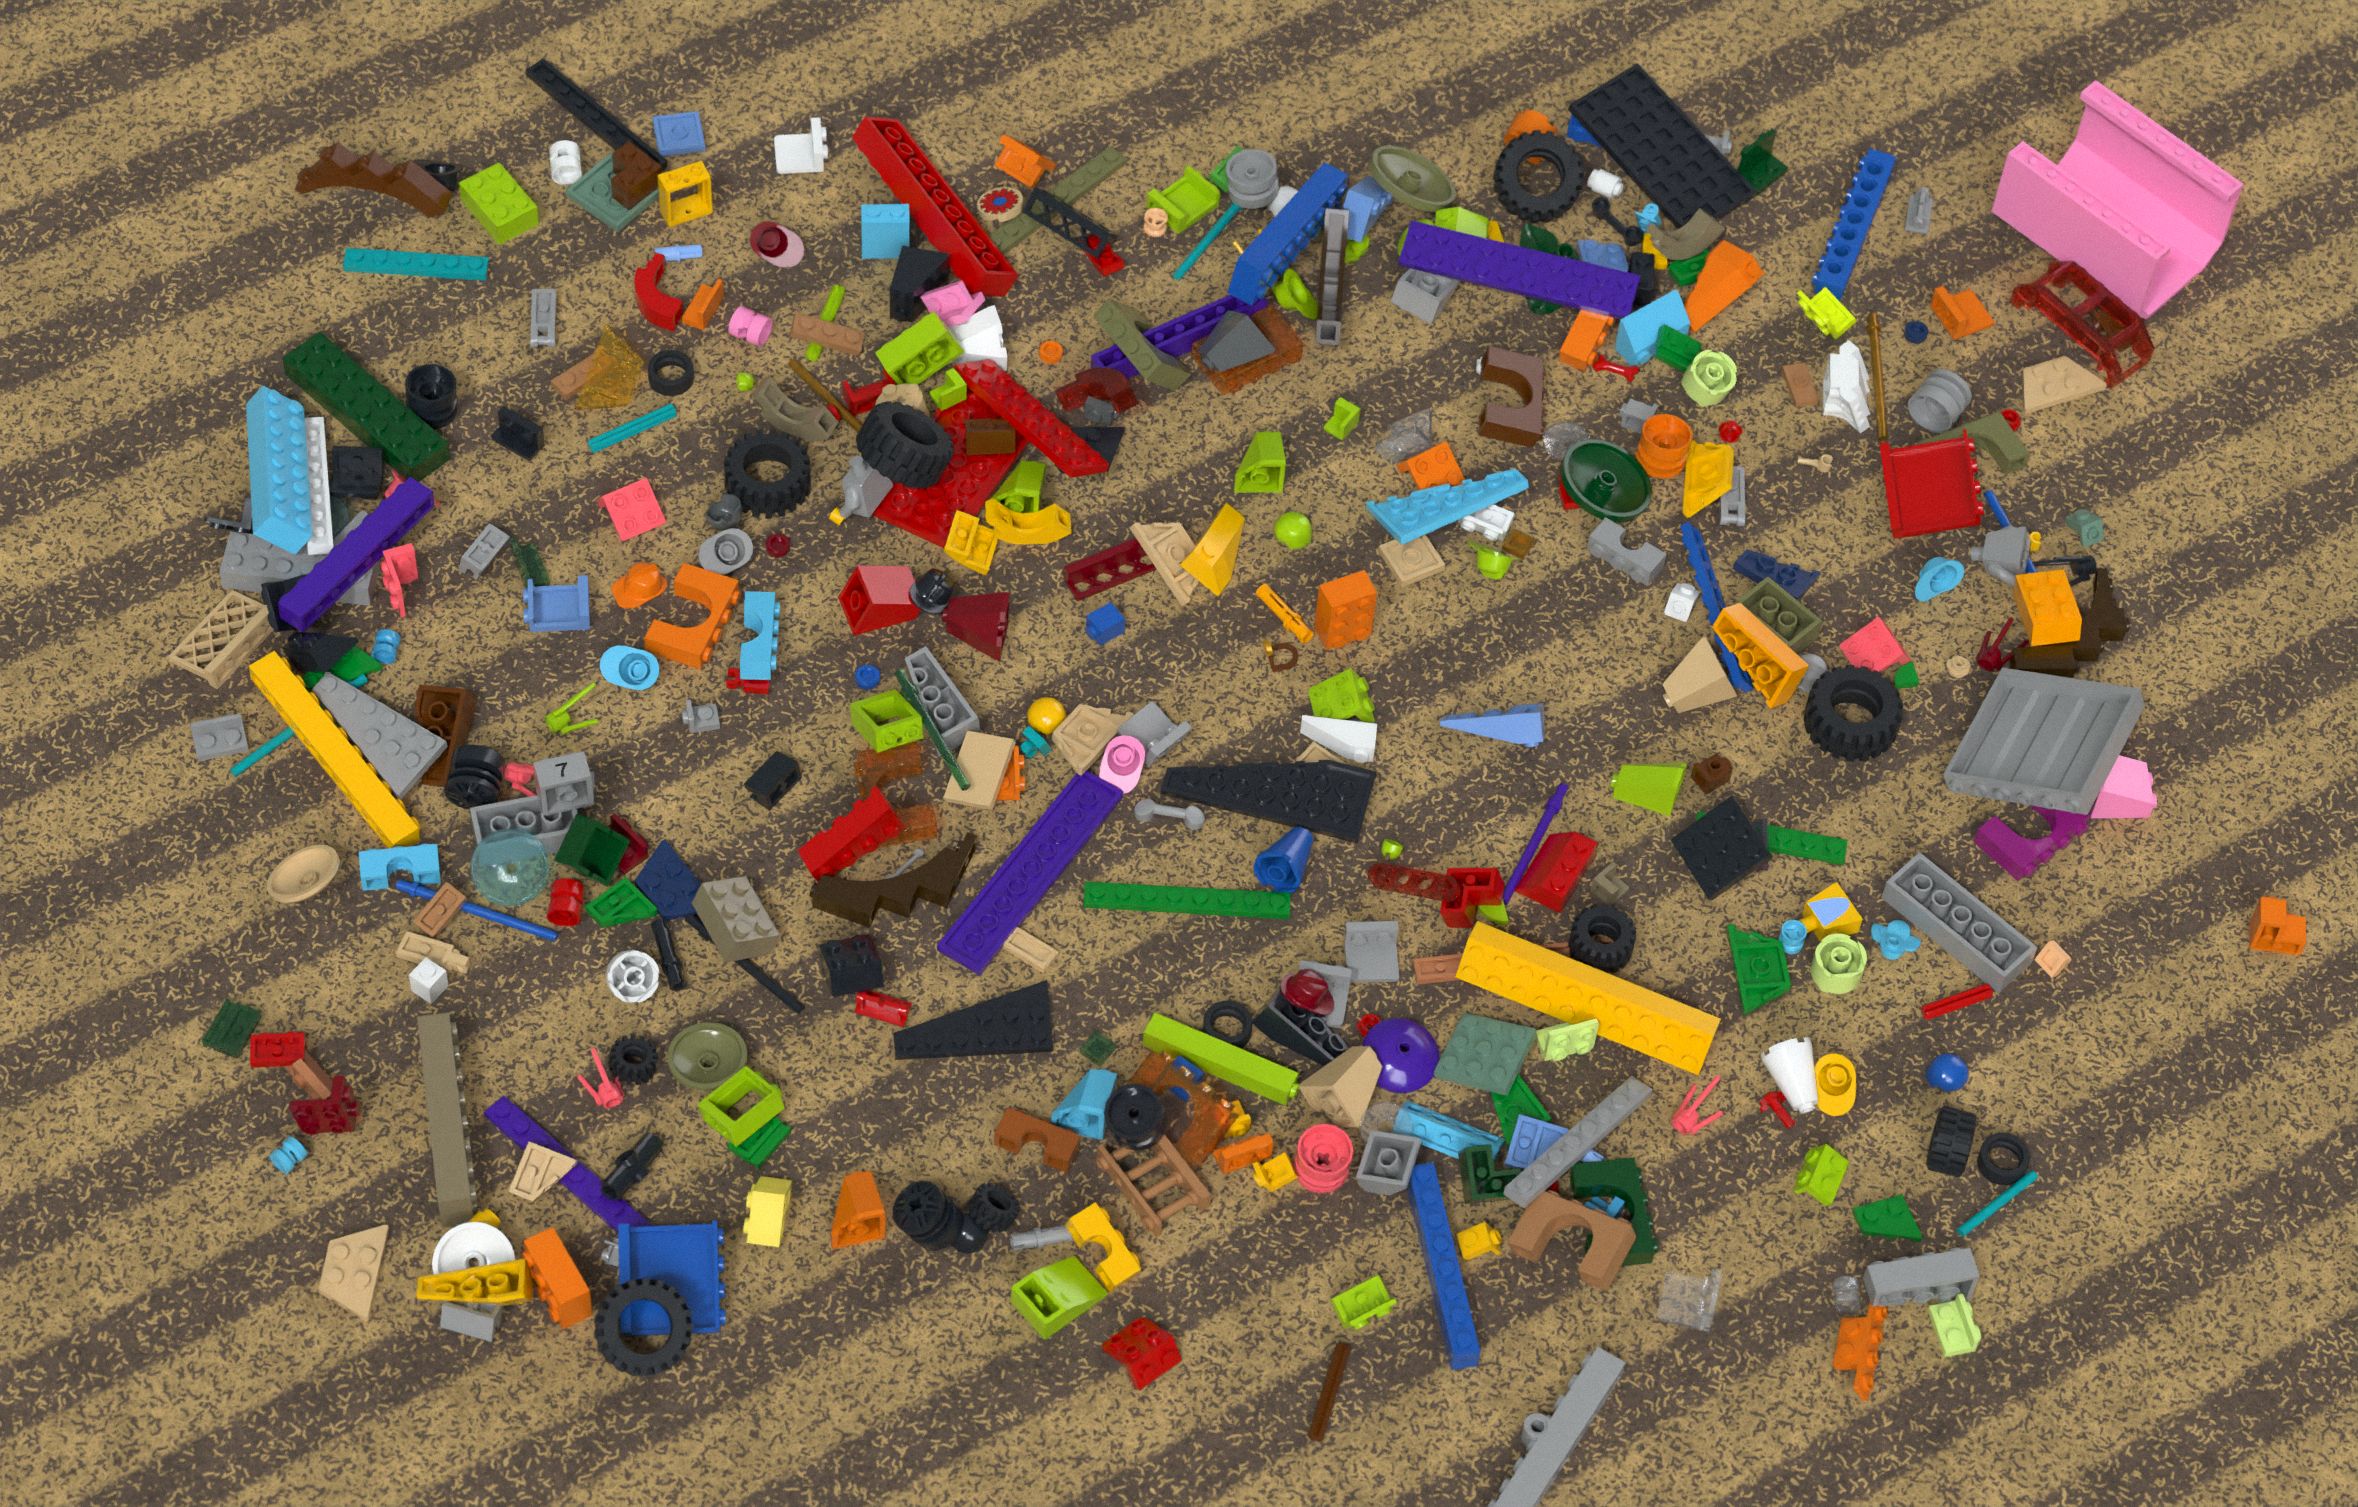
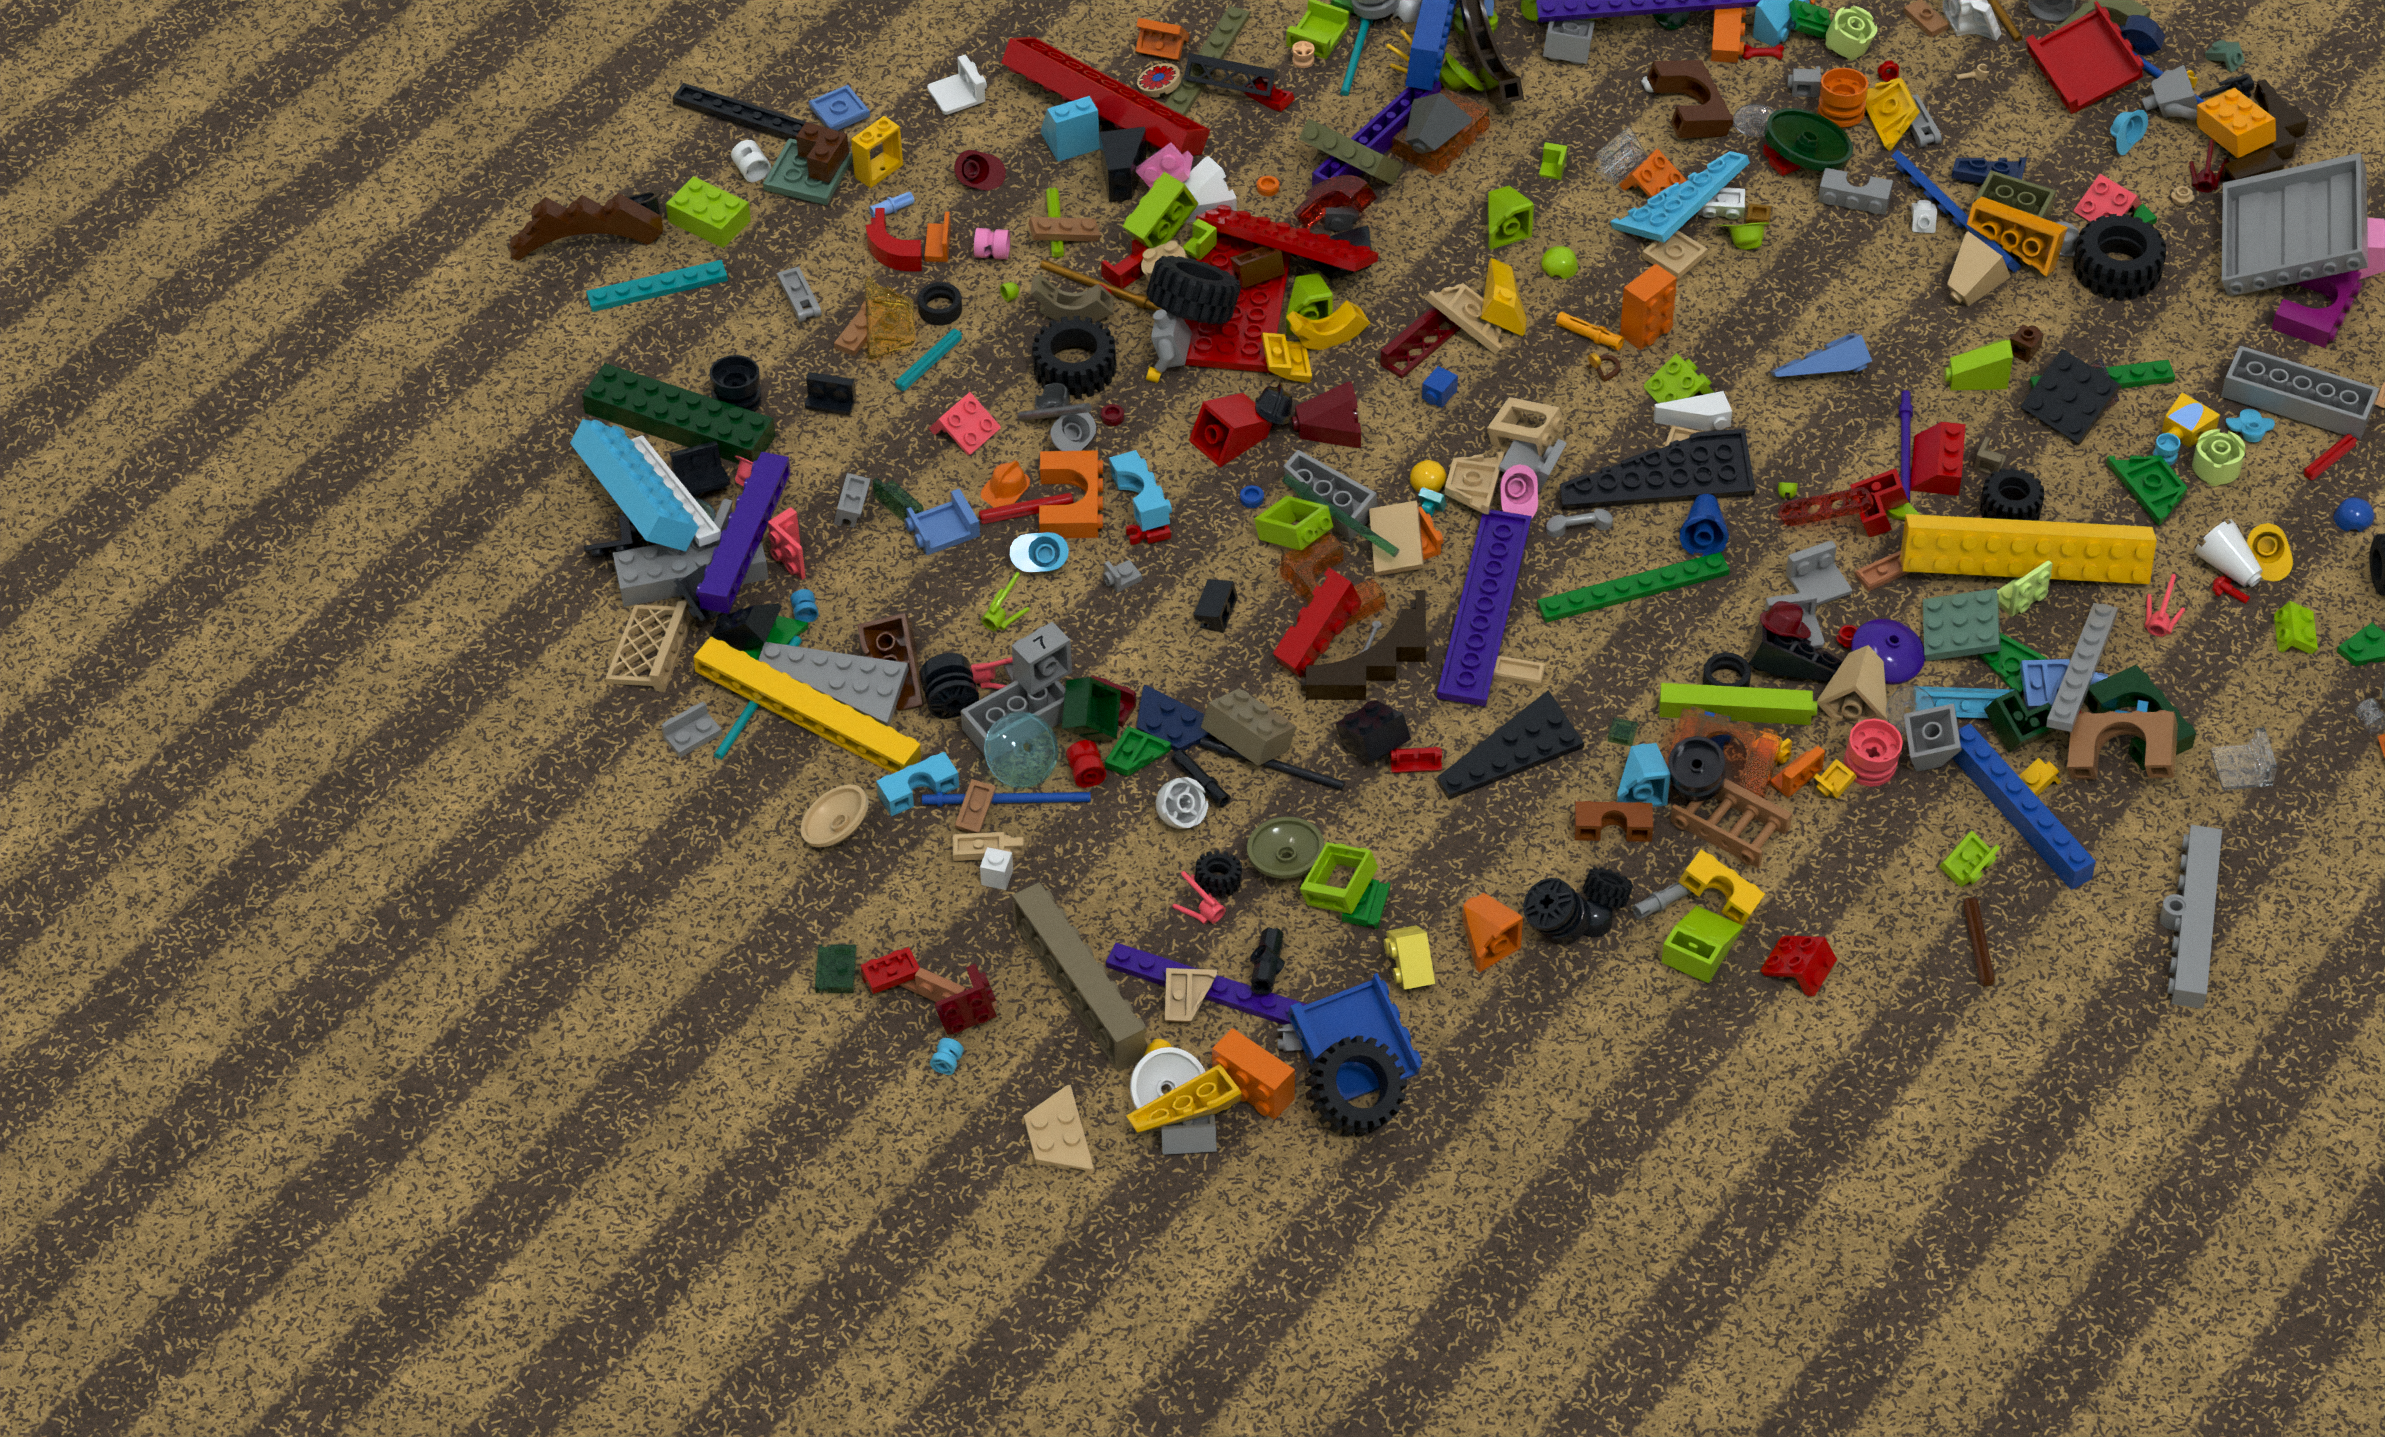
camera: 15 degrees left, 5 degrees down
(645, 615) = (1022, 508): none -> red axle
(715, 526) = (1054, 411): none -> flat silver bar
(1154, 679) = (1505, 422): none -> tan panel
(2006, 474) = (2143, 34): none -> dark blue brick

